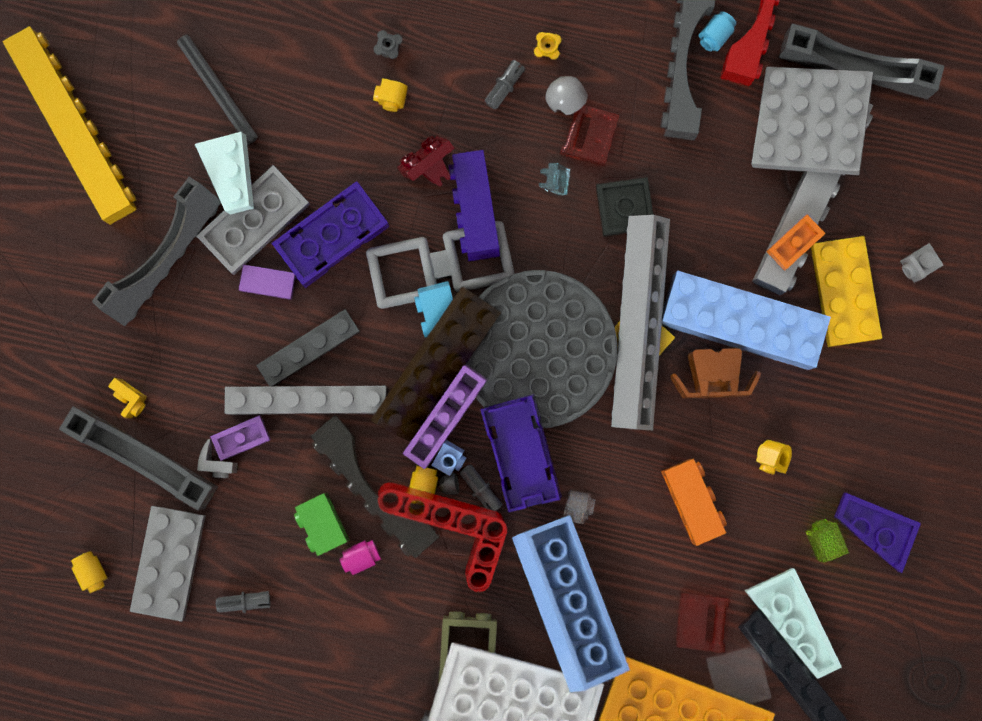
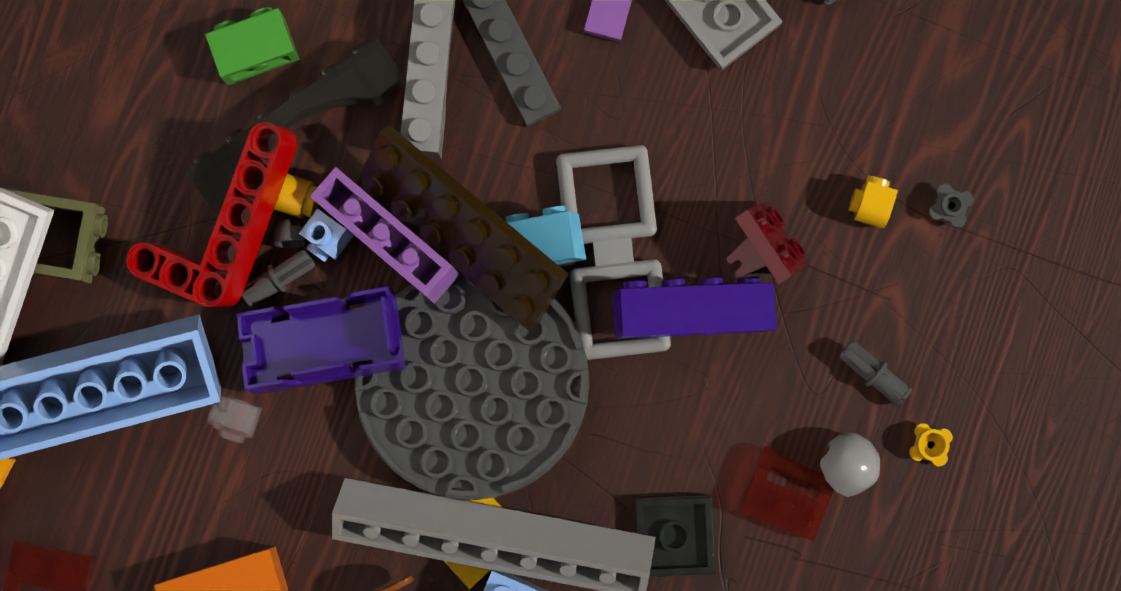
camera: 95 degrees right, 0 degrees up
(330, 234) = (671, 94): dark purple piece -> none
(360, 557) = (199, 95): dark pink brick -> none
(557, 178) = (724, 436): clear light blue tile -> none

